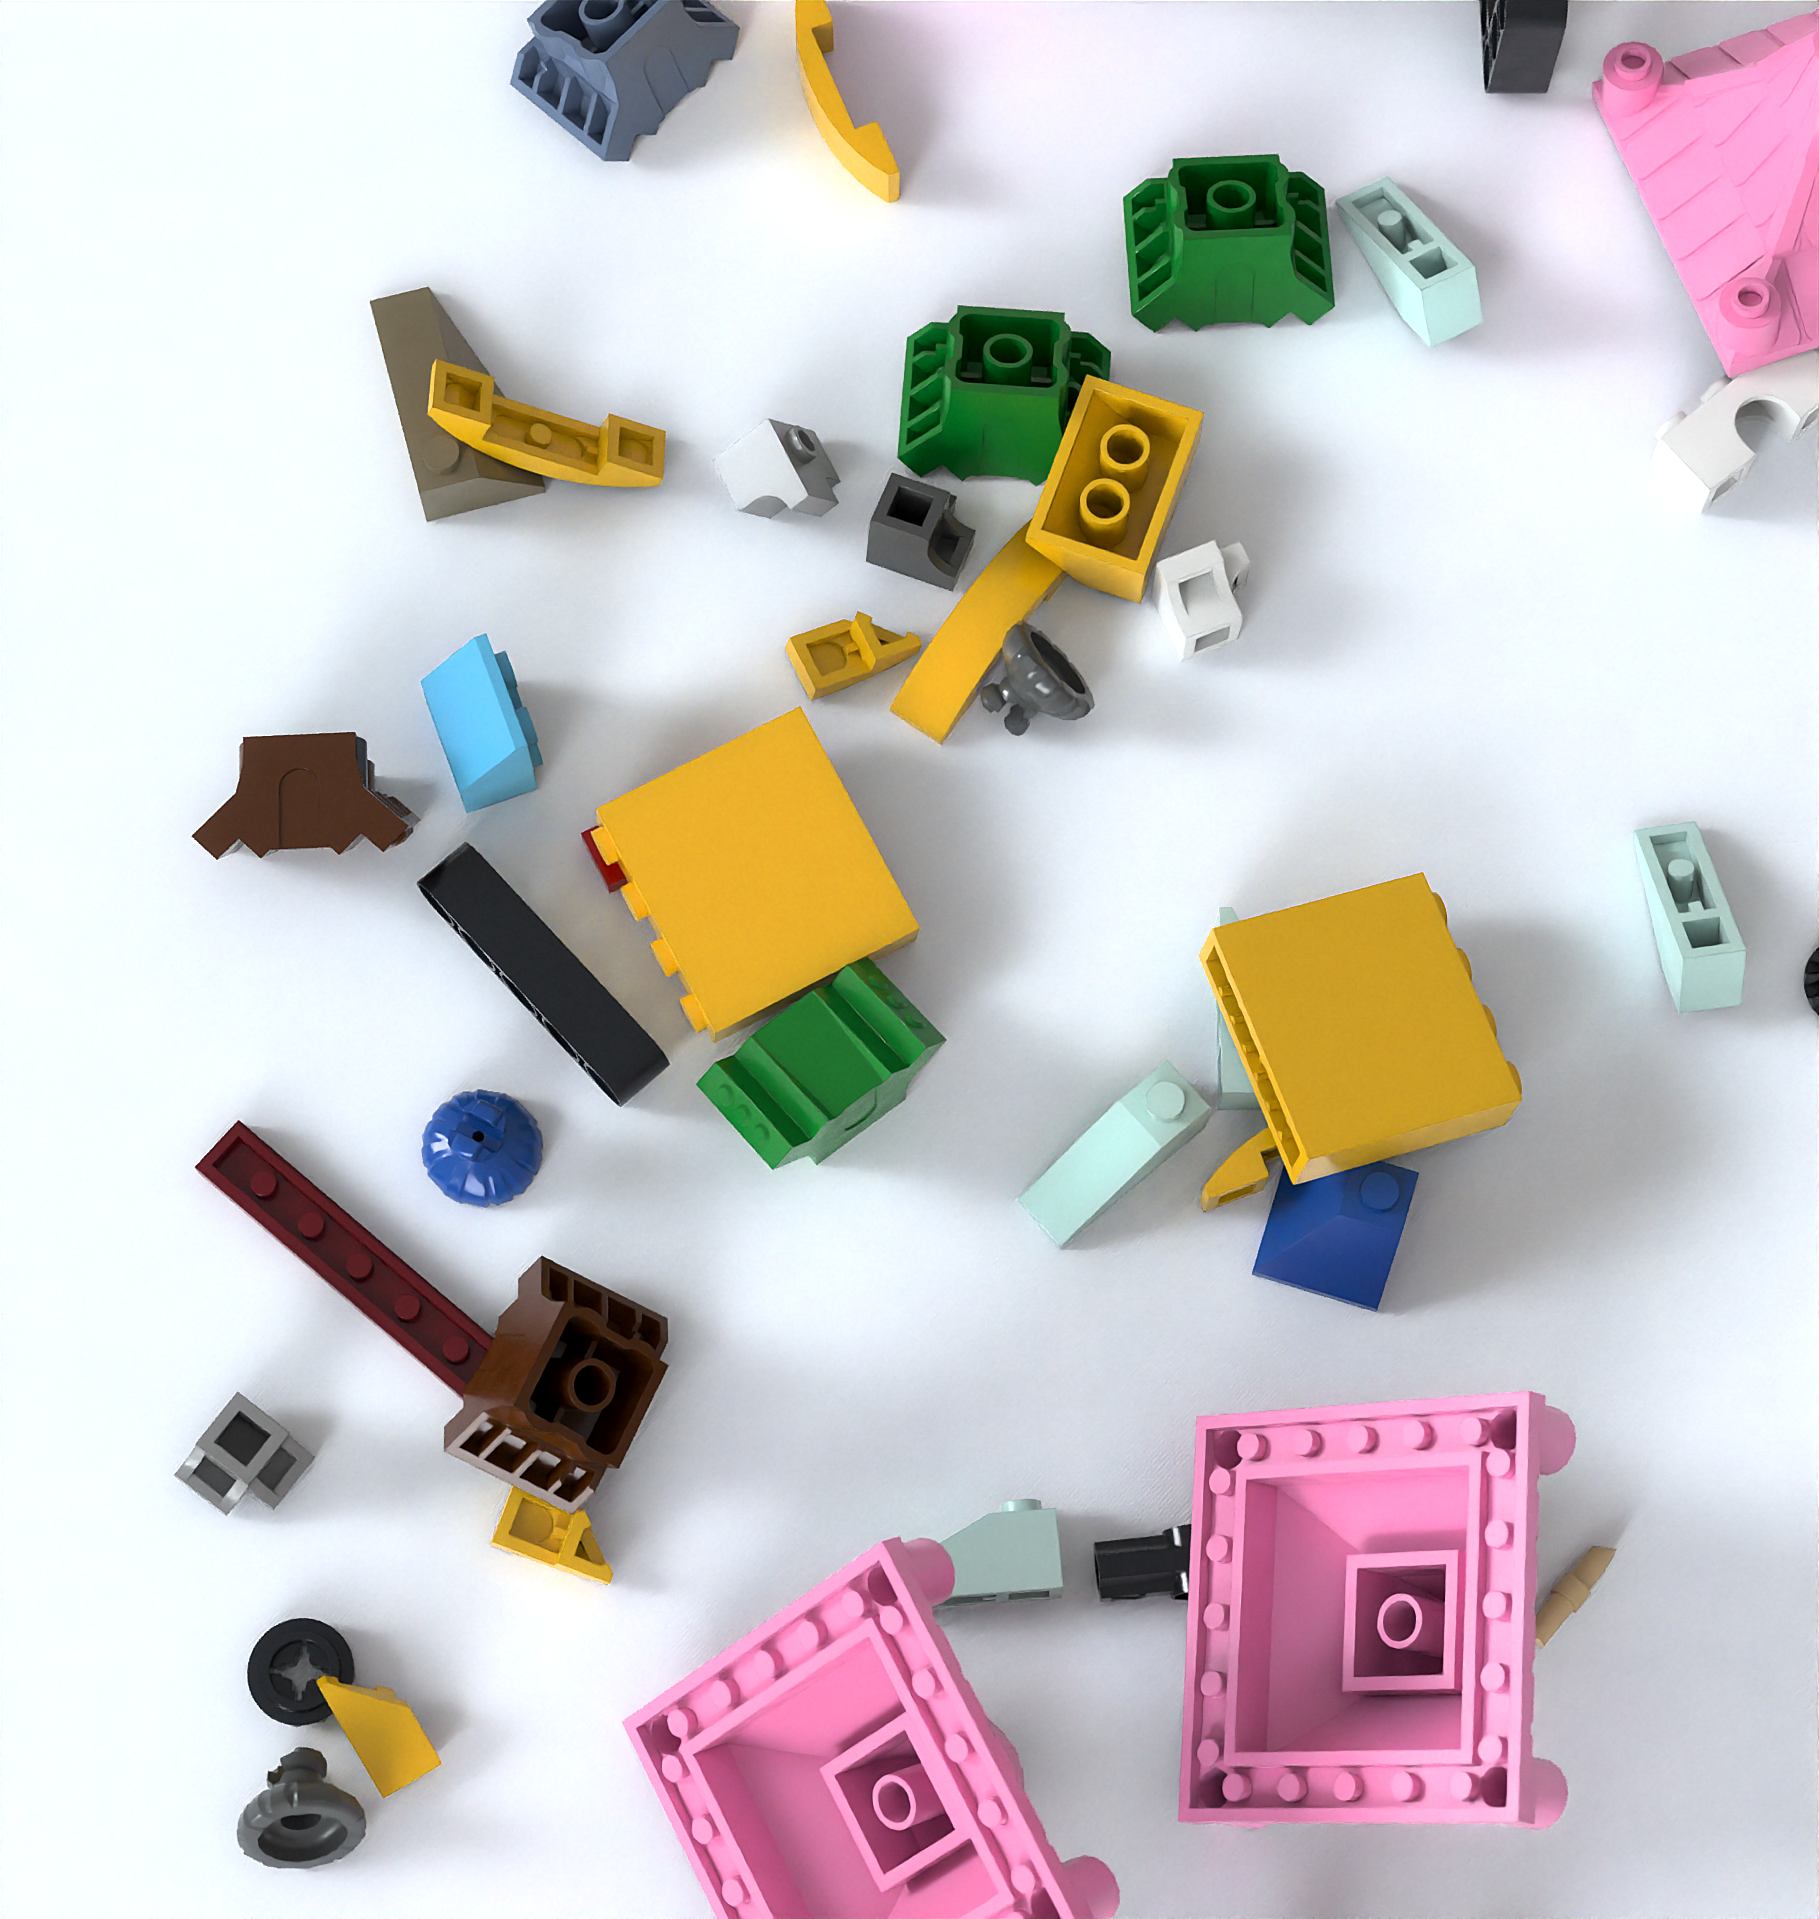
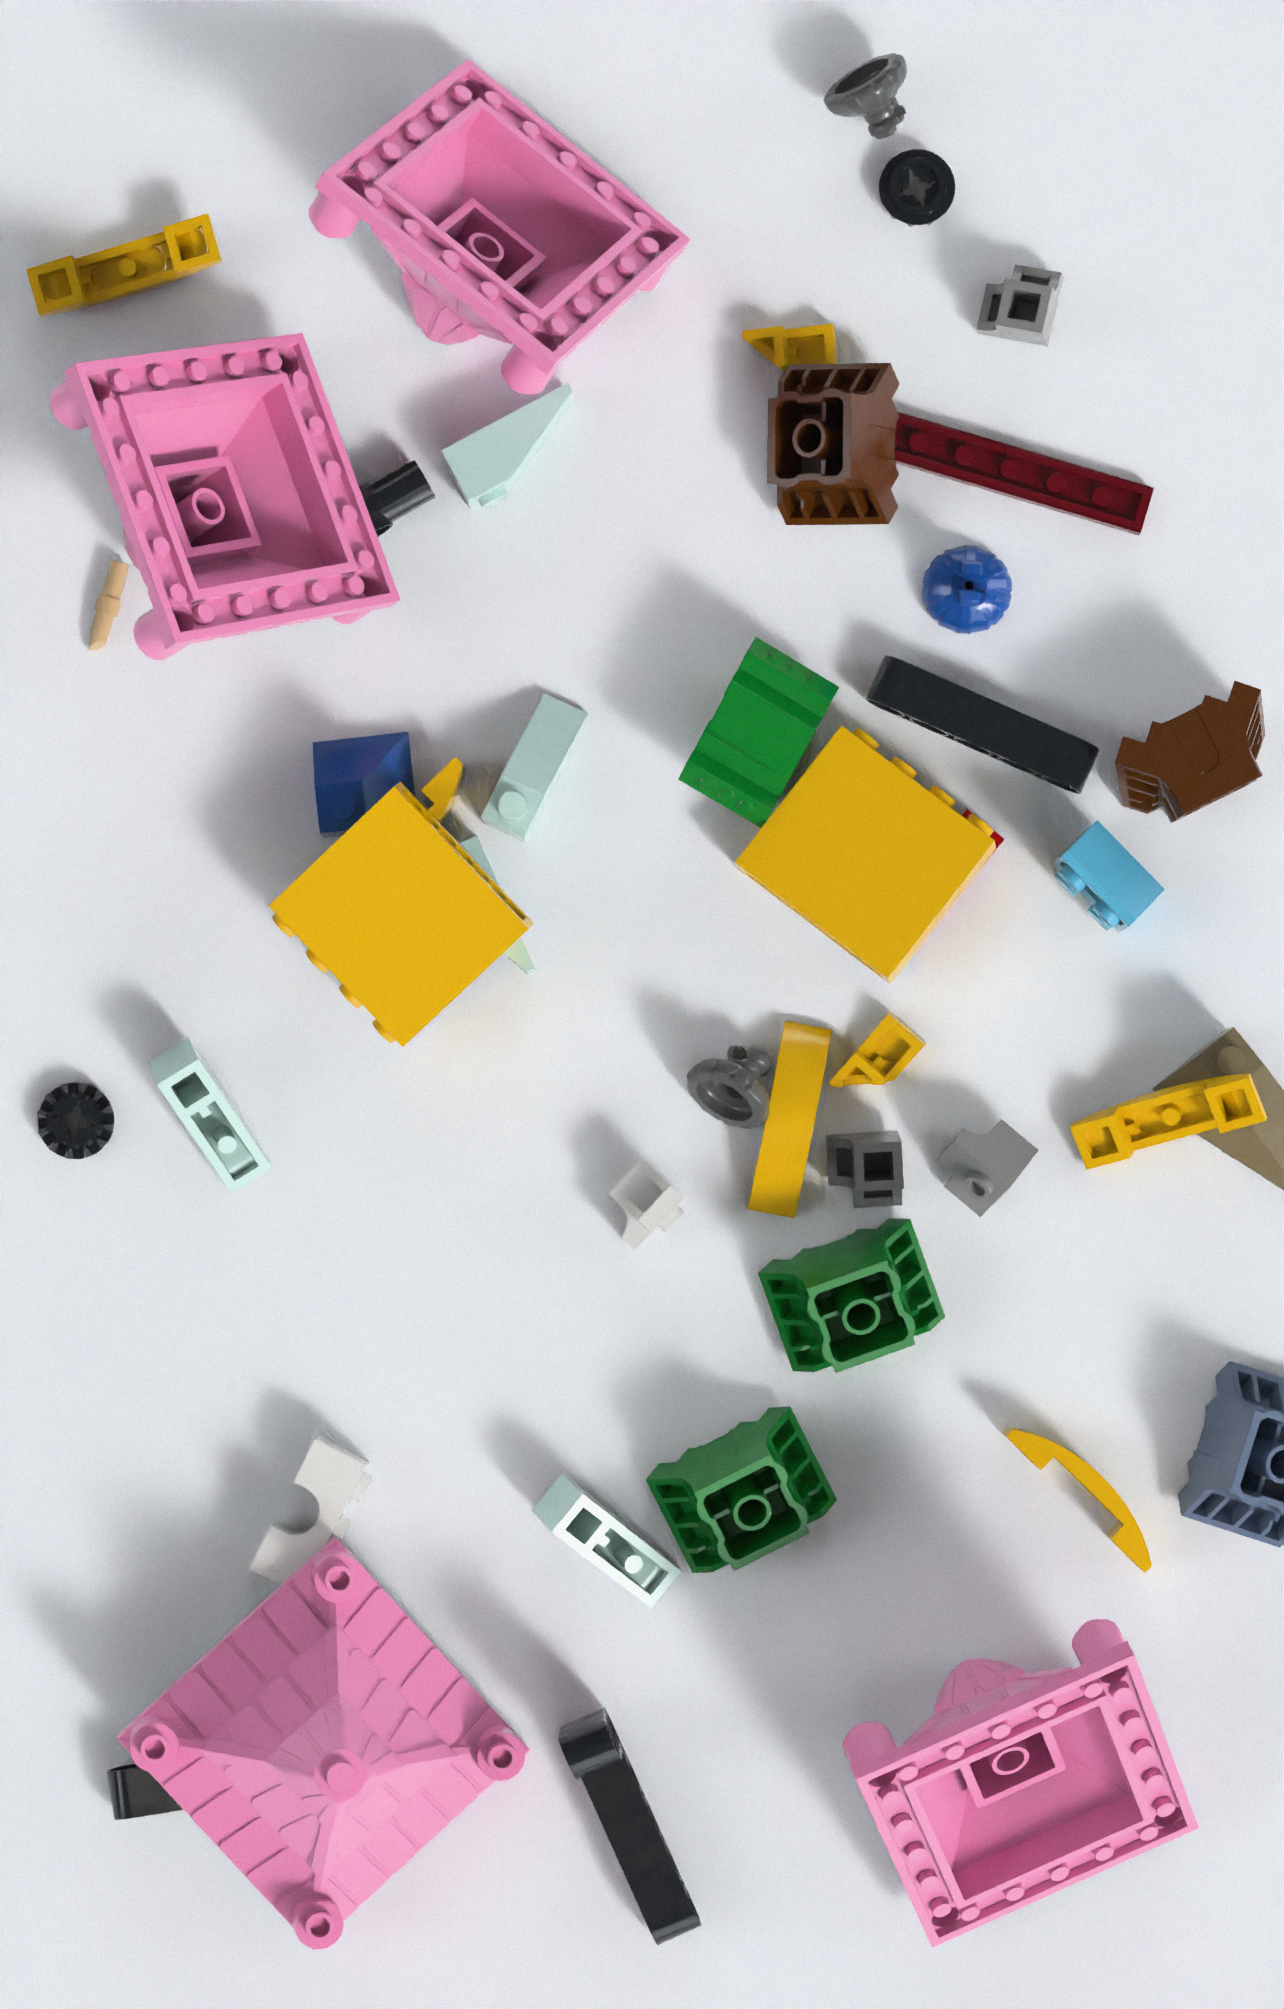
camera: 155 degrees right, 15 degrees up
(381, 1733) = (845, 169): yellow slope -> none
(1115, 486) = (743, 1255): yellow slope -> none

